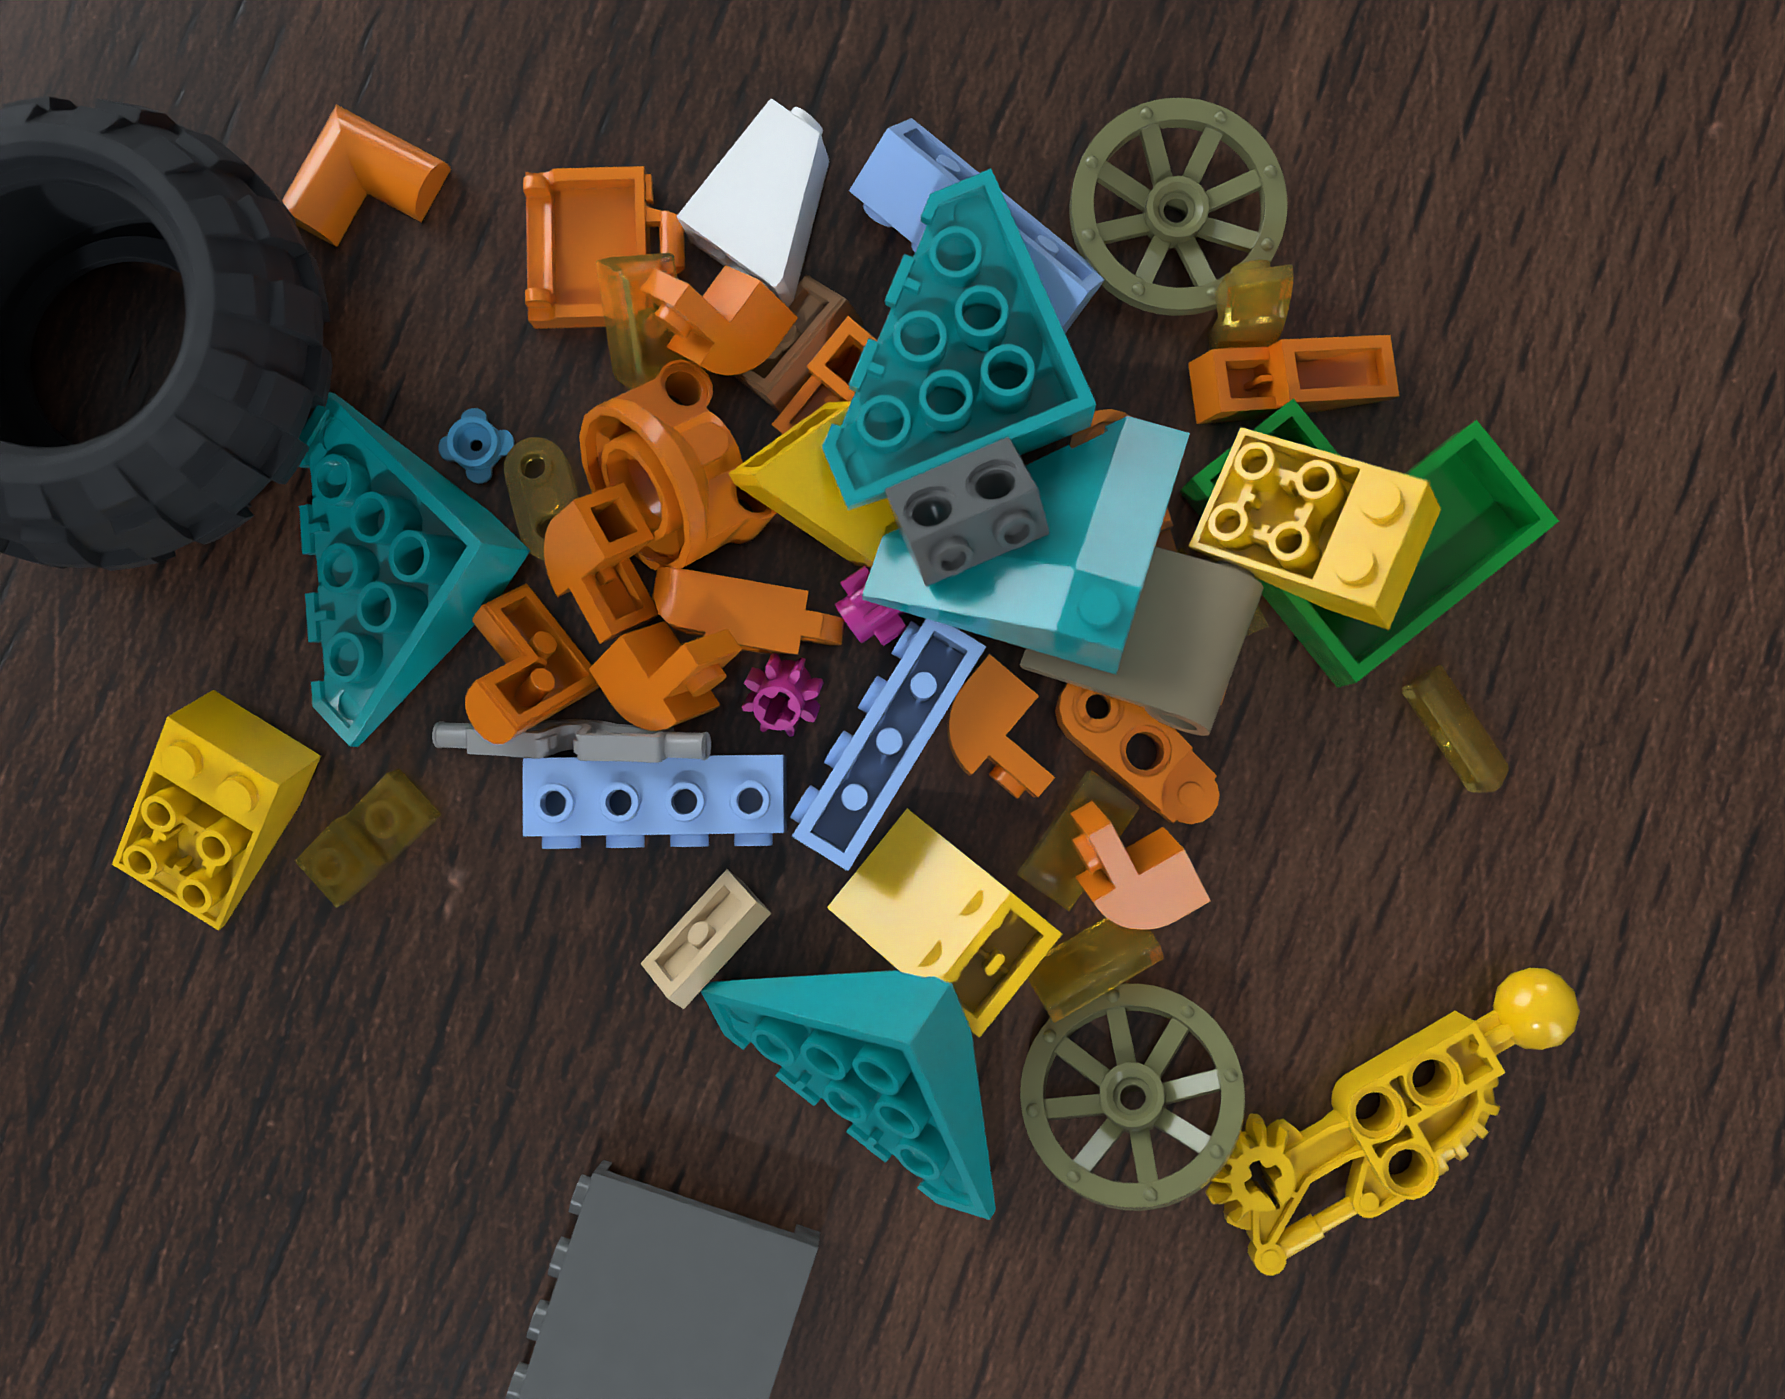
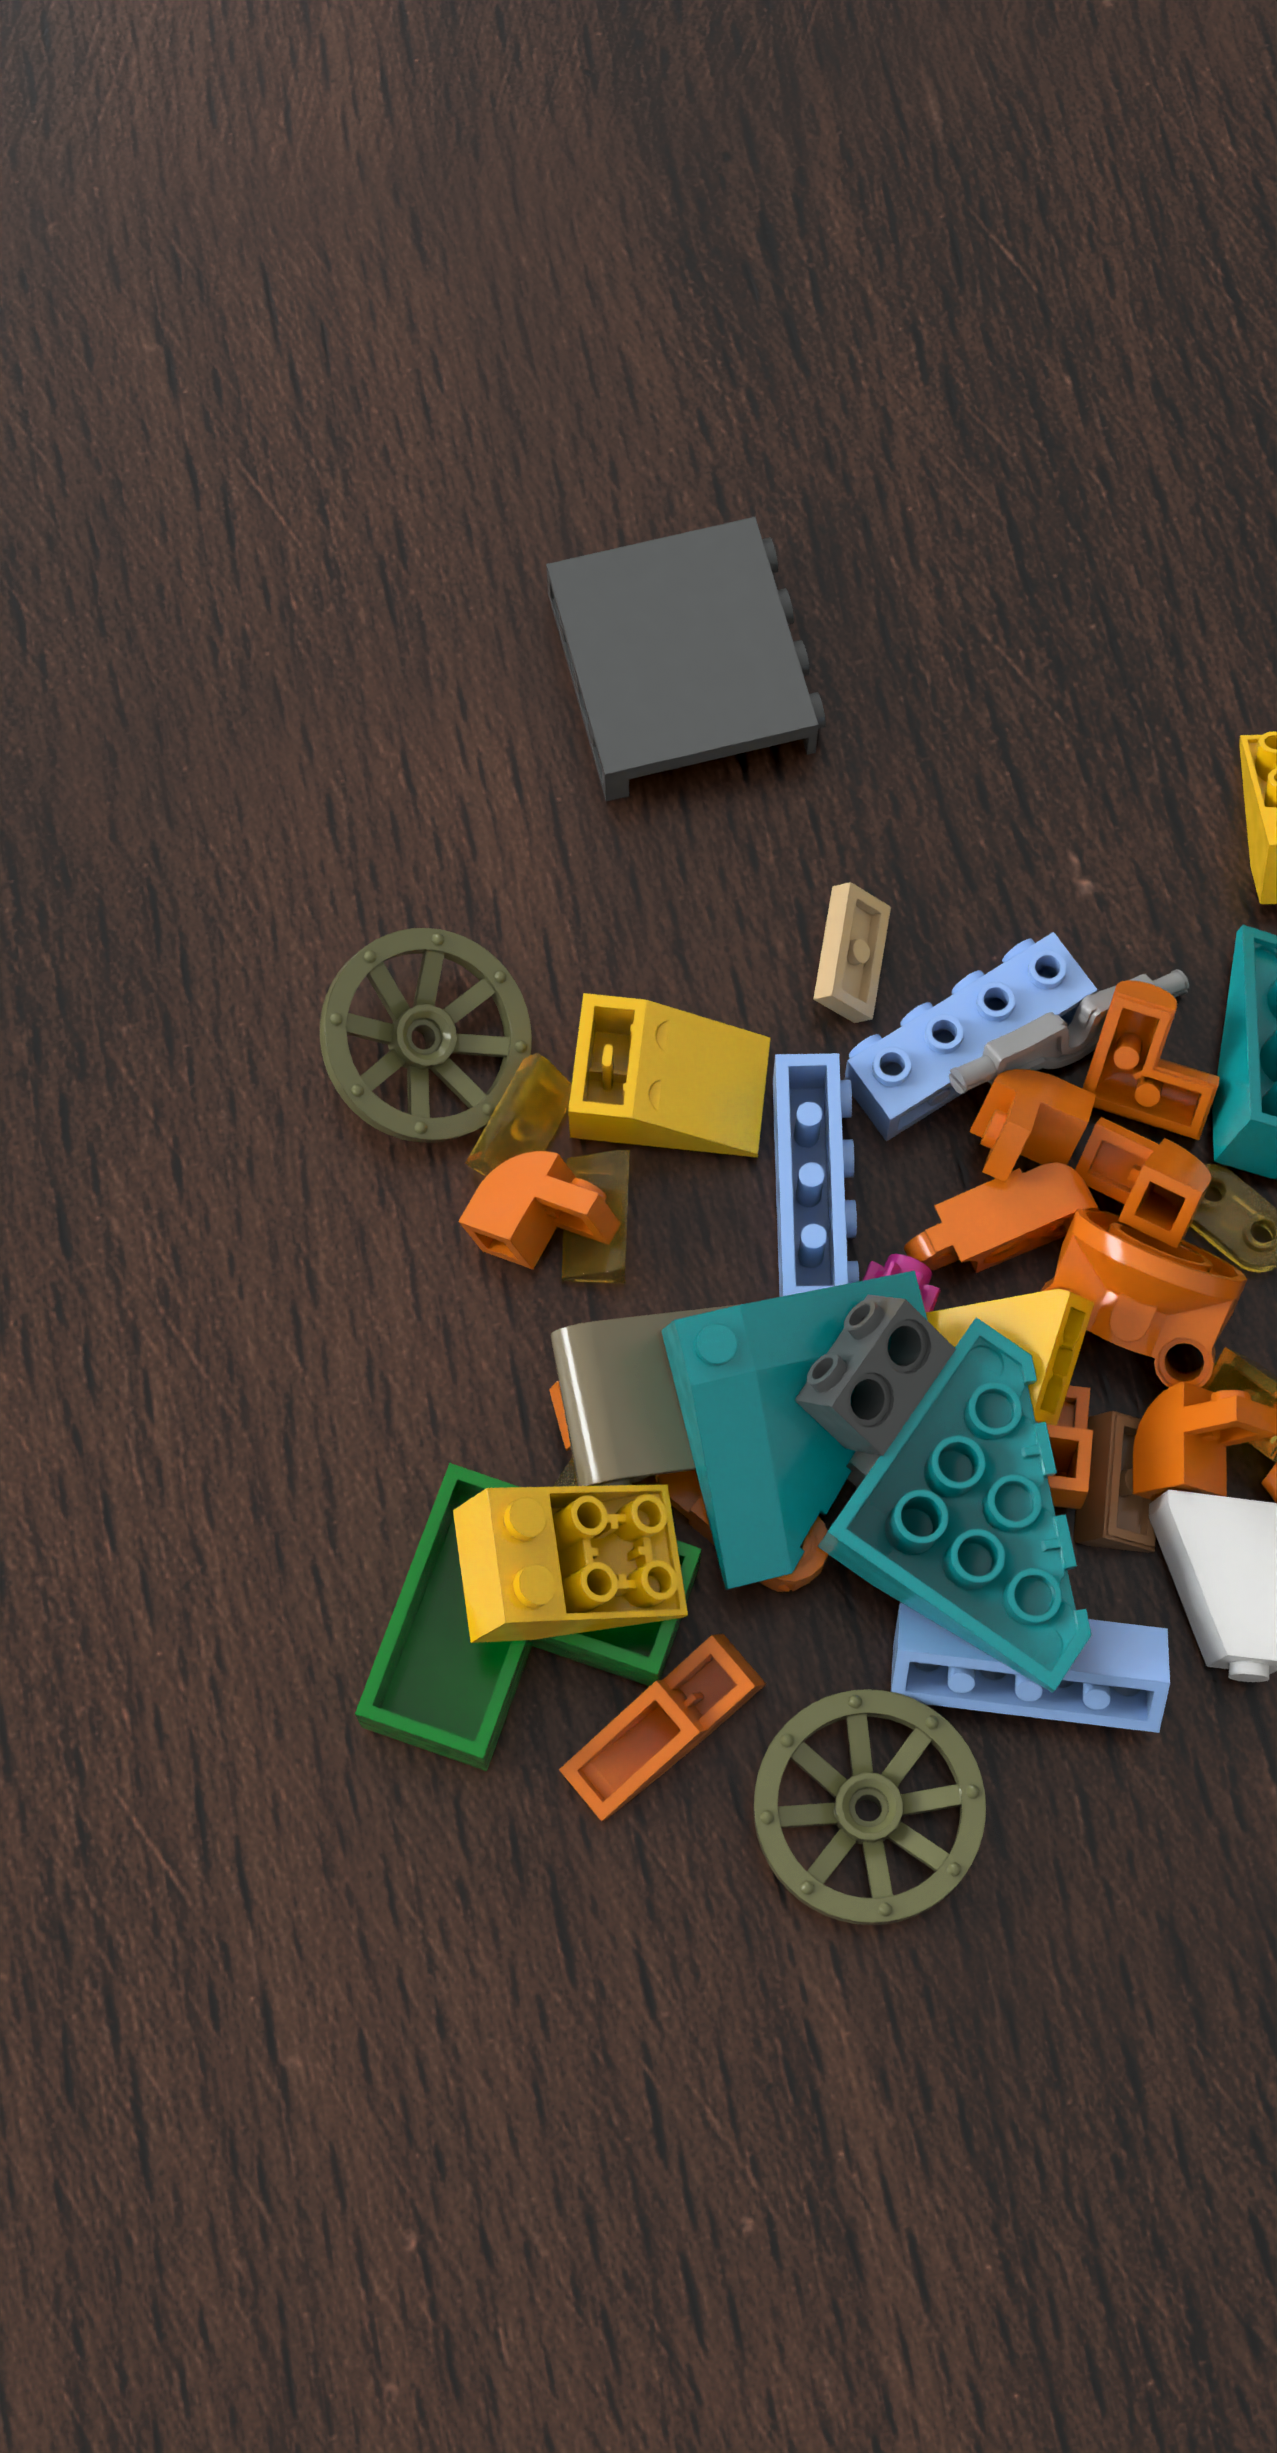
camera: 150 degrees right, 15 degrees down
(367, 837) = (1176, 870): clear yellow slope -> none
(777, 711) = (923, 1174): dark pink gear -> none
(883, 1055) = (647, 938): teal slope -> none
(979, 723) = (738, 1248): orange brick -> none
(1176, 783) = (549, 1300): orange piece -> none
(1251, 305) = (747, 1744): clear yellow slope -> none
(1432, 1120) = (165, 1164): yellow arm -> none
(1456, 730) = (325, 1509): clear yellow slope -> none

